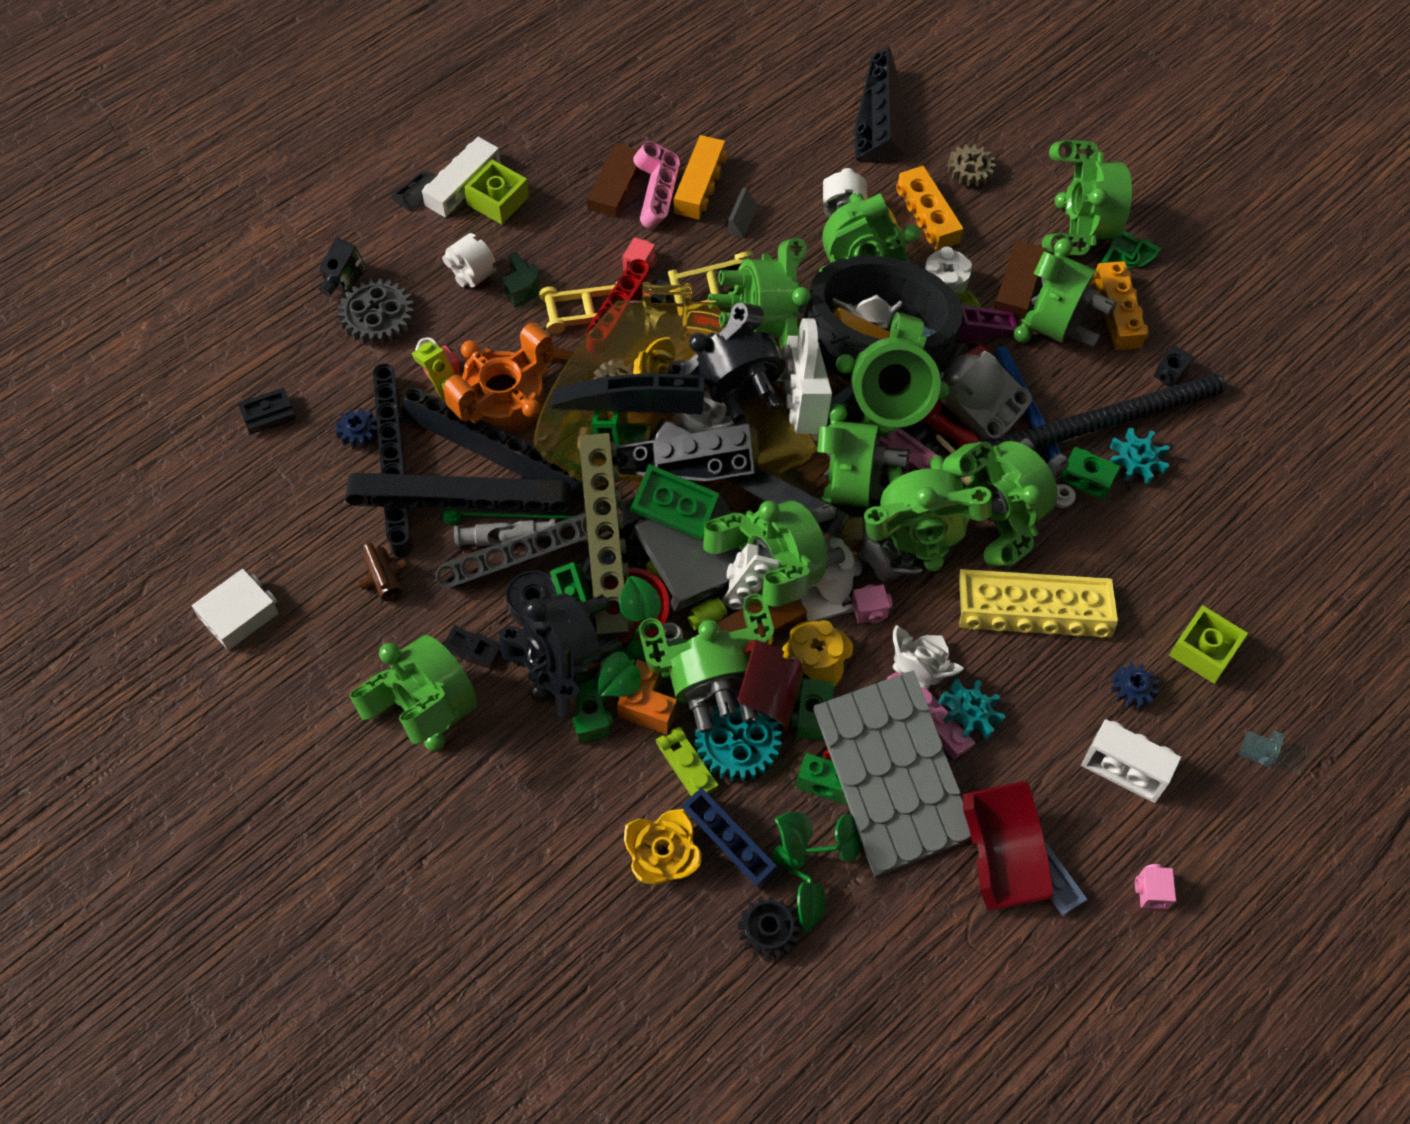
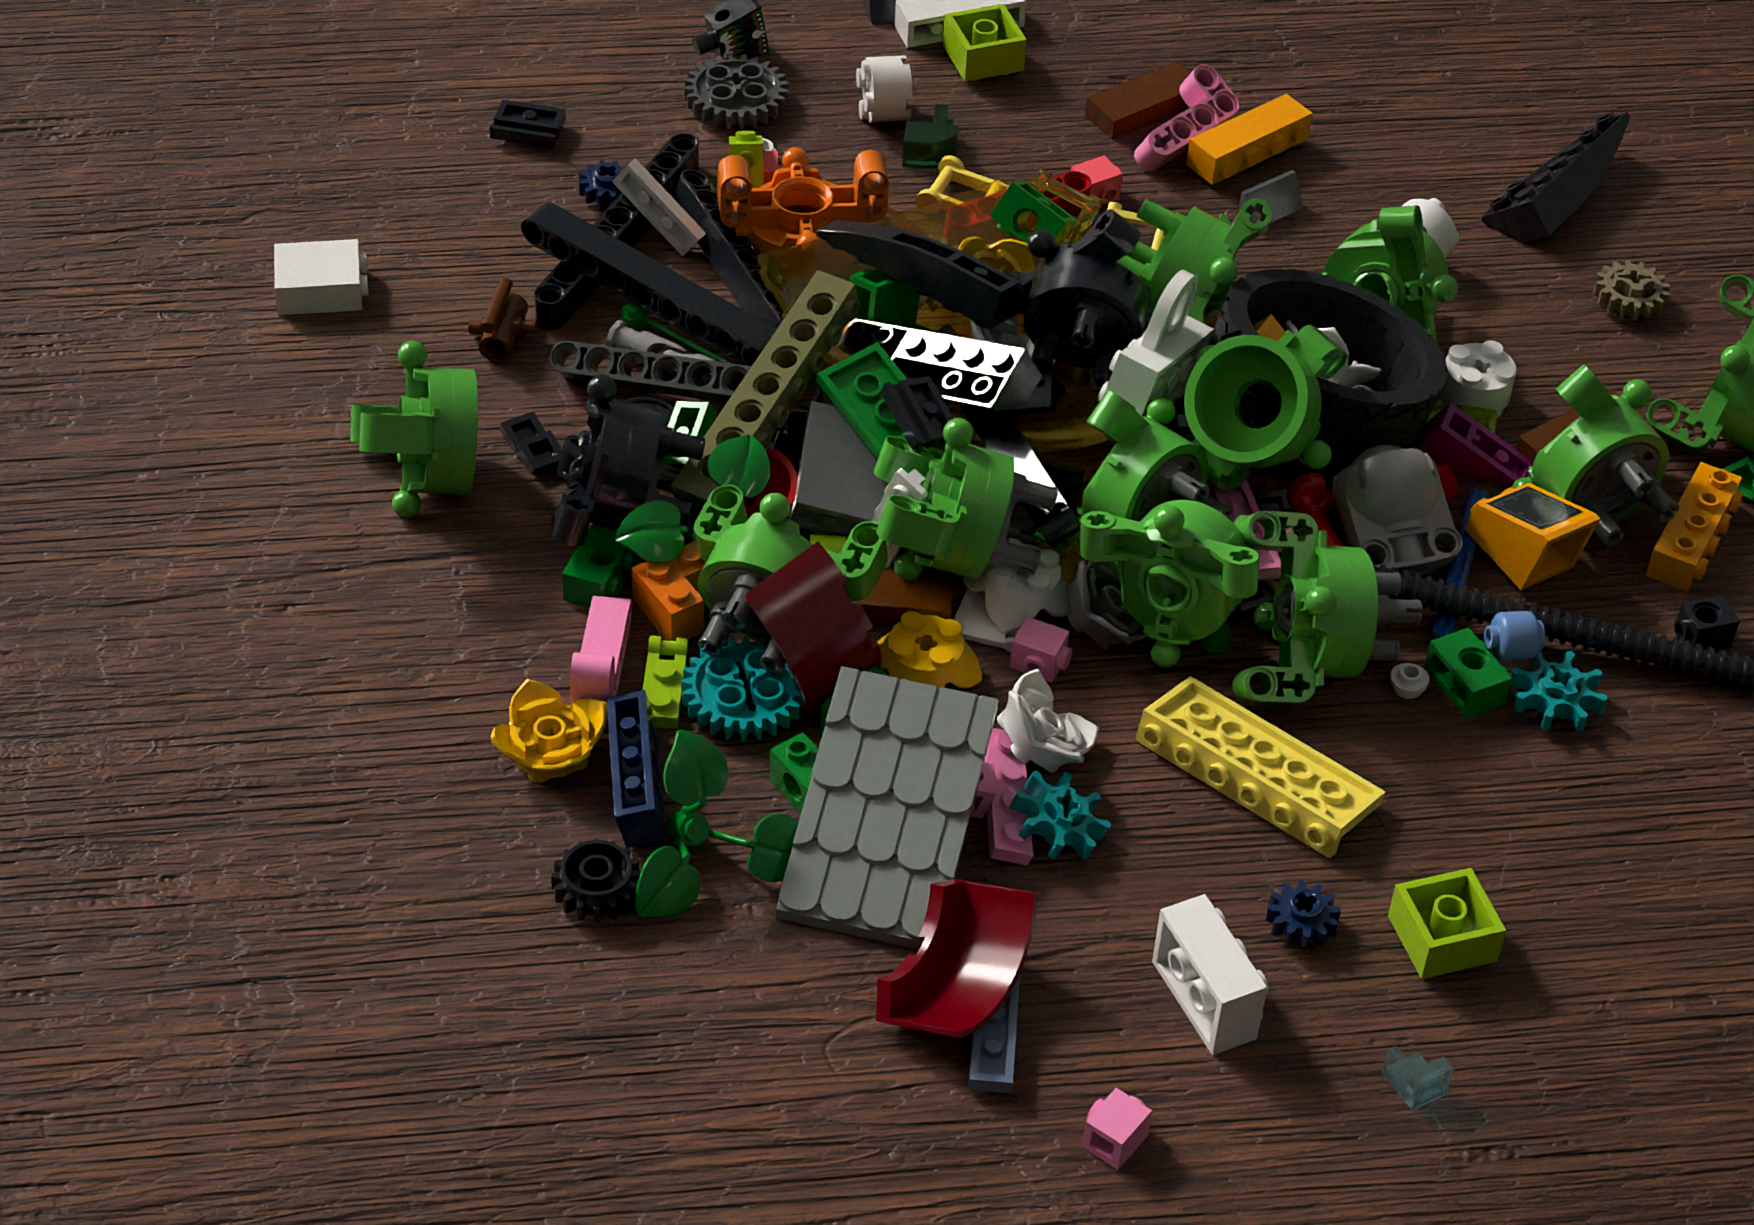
camera: 35 degrees right, 15 degrees down
(412, 431) = (658, 207): none -> white plate
(649, 309) = (1021, 200): none -> green brick
(654, 791) = (599, 665): none -> bright pink beam
(712, 498) = (918, 411): none -> black plate
(929, 208) = (1526, 305): light orange brick -> none
(1054, 362) = (1531, 532): none -> light orange slope
(1103, 438) = (1515, 636): none -> medium blue head

